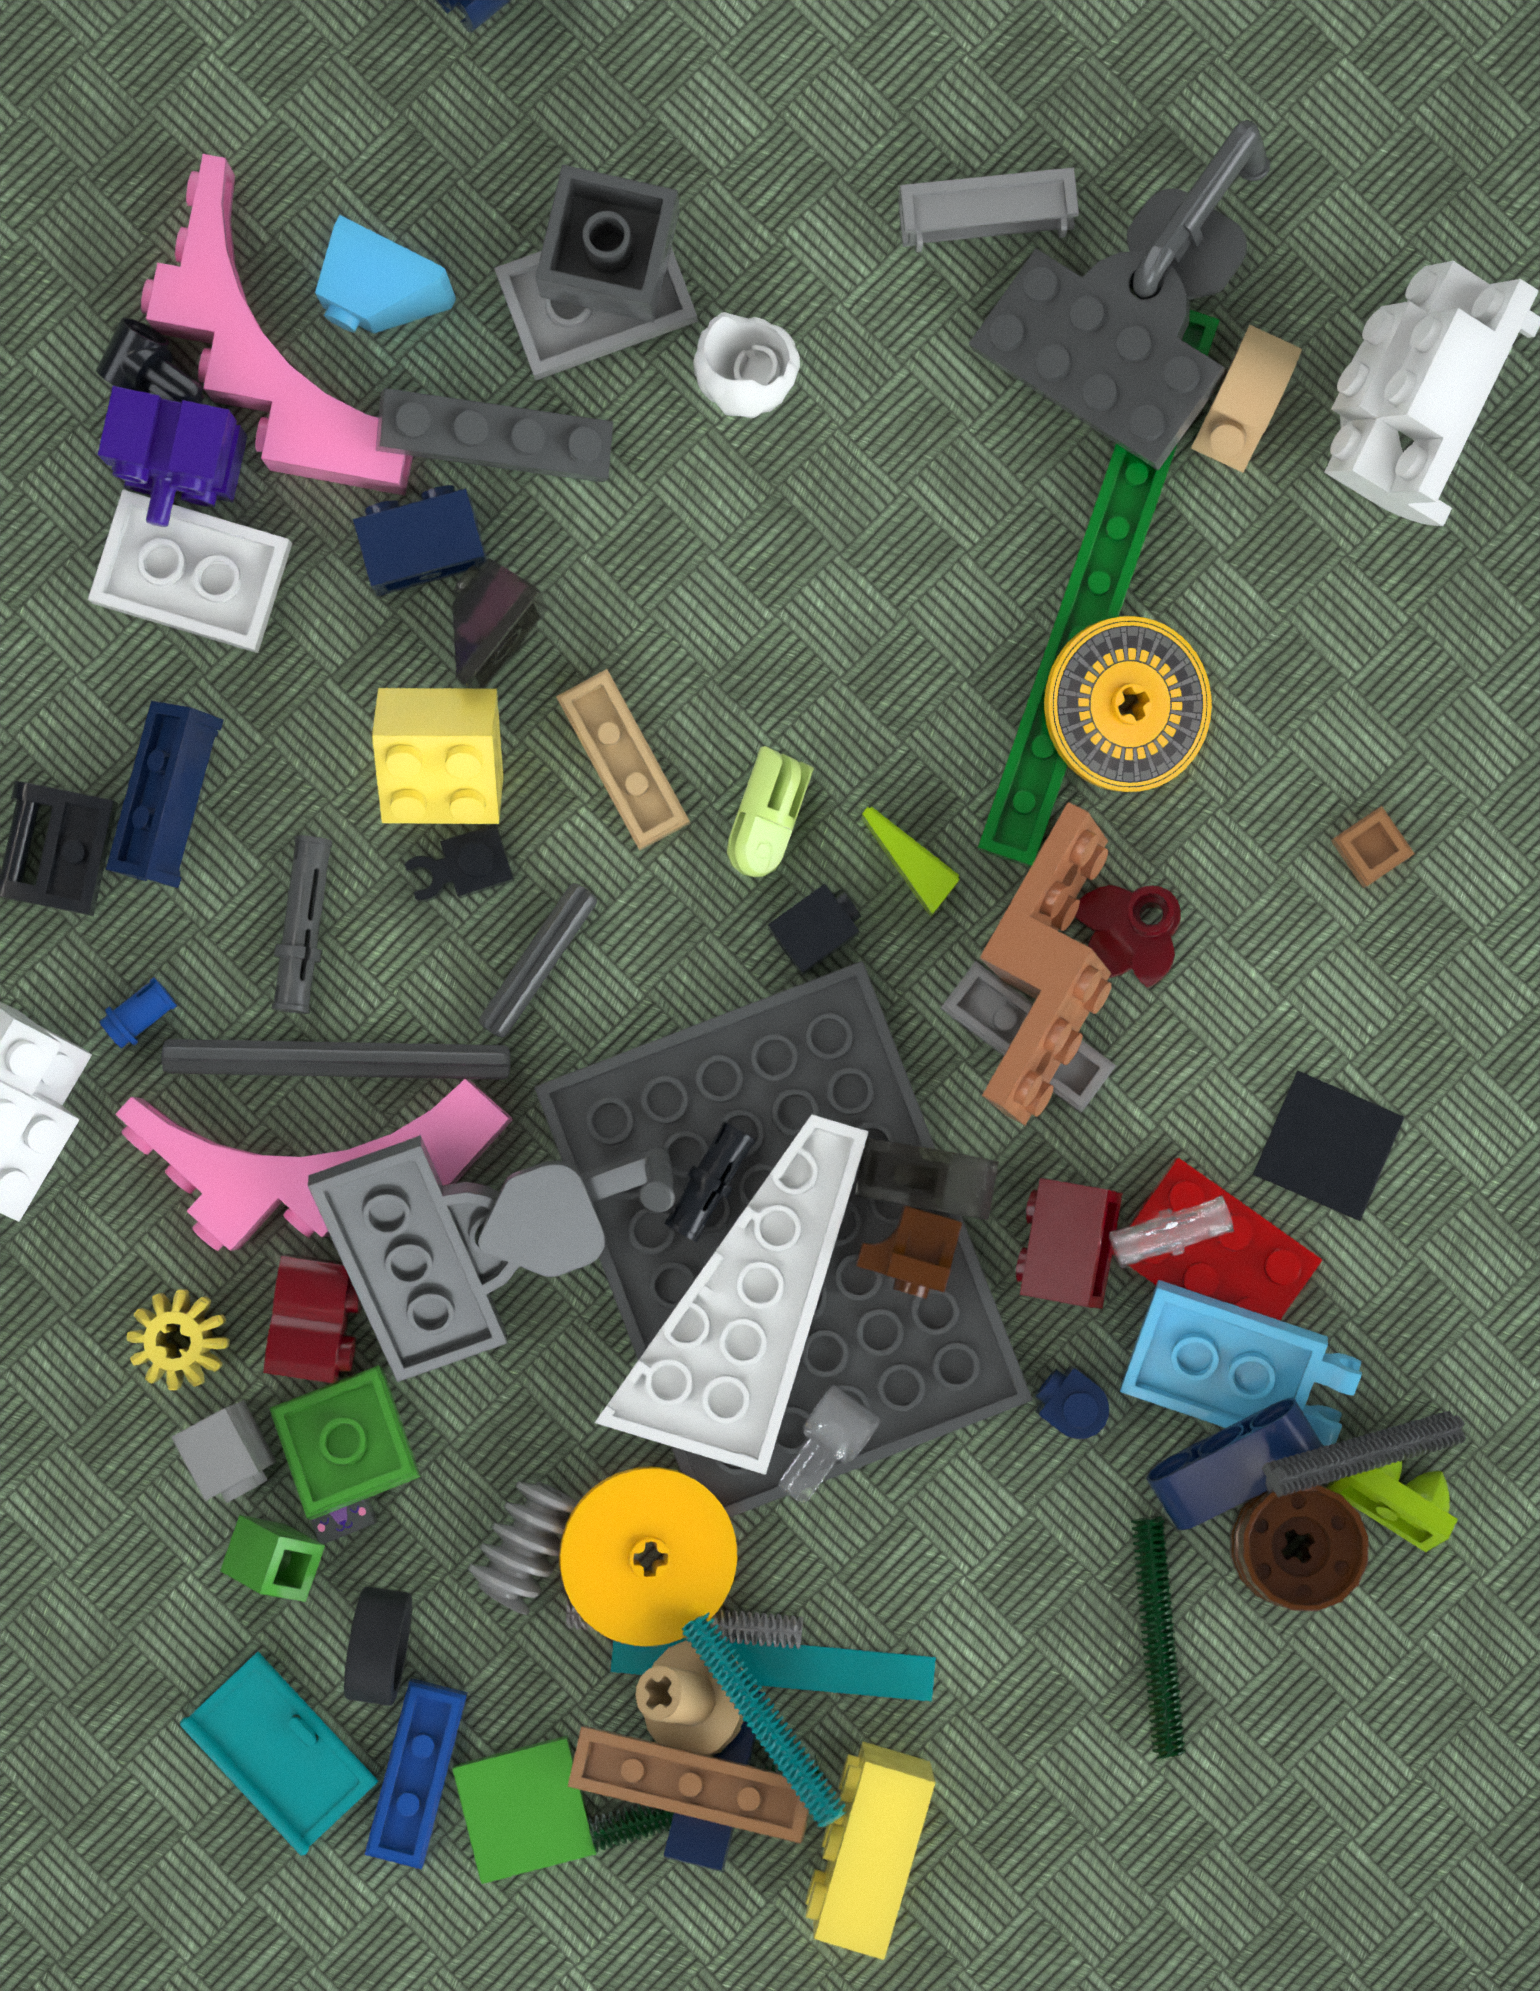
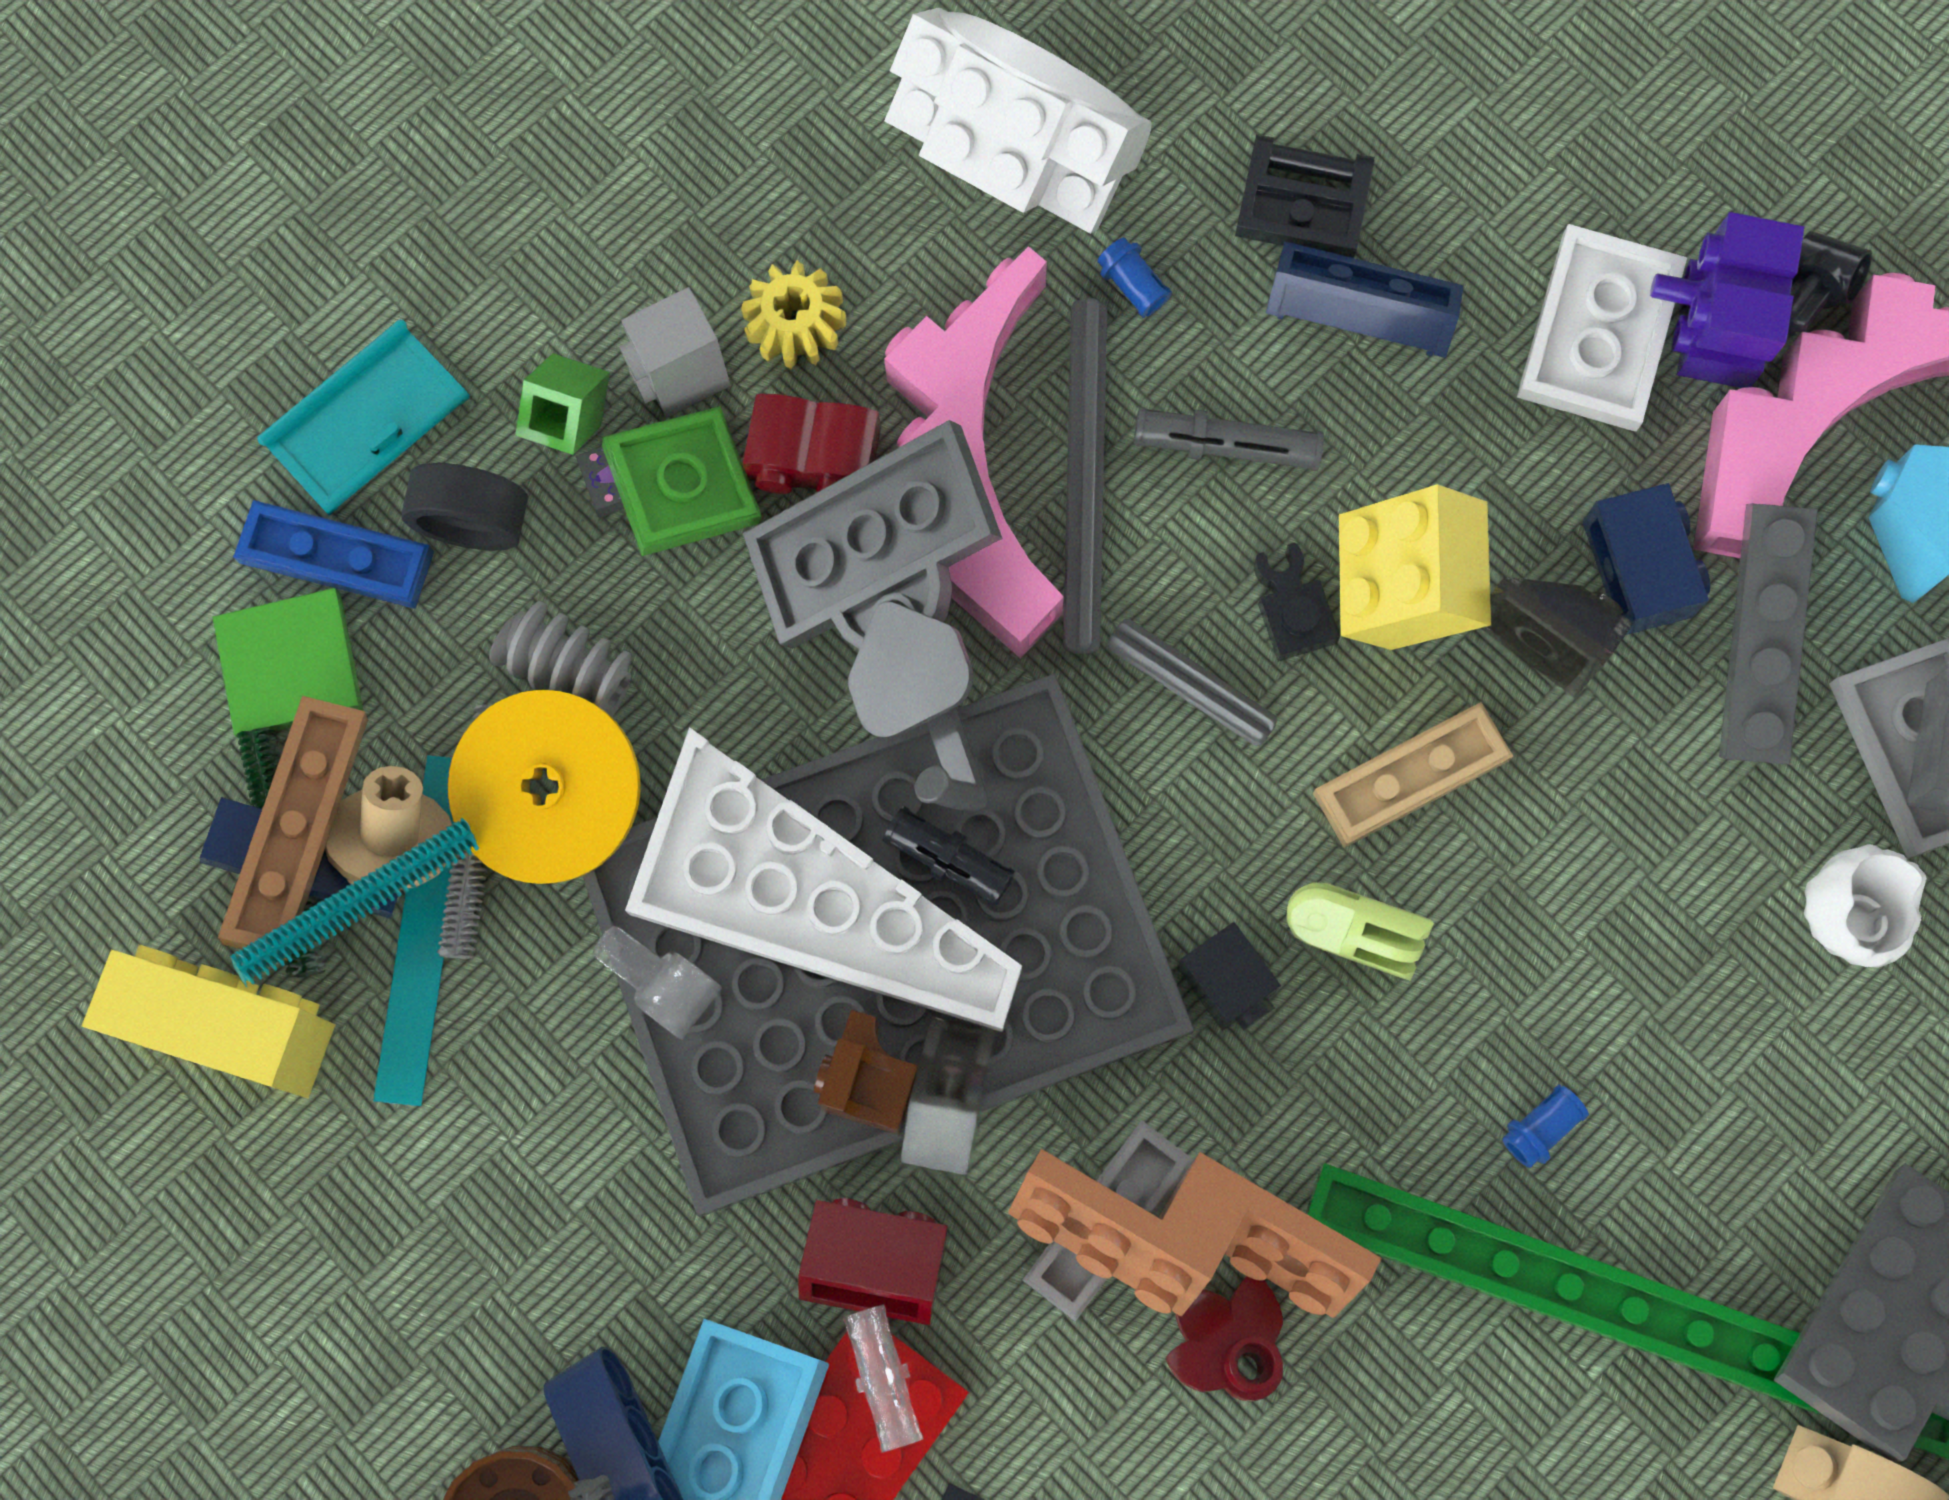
camera: 90 degrees right, 10 degrees down
(920, 869) = (1293, 1101): lime slope -> none
(941, 653) = (1544, 1126): none -> blue pin
(1073, 1404) = (691, 1263): dark blue plate -> none
(1088, 686) = (1513, 1292): piece -> none
(1160, 1637) = (426, 1359): dark green axle -> none

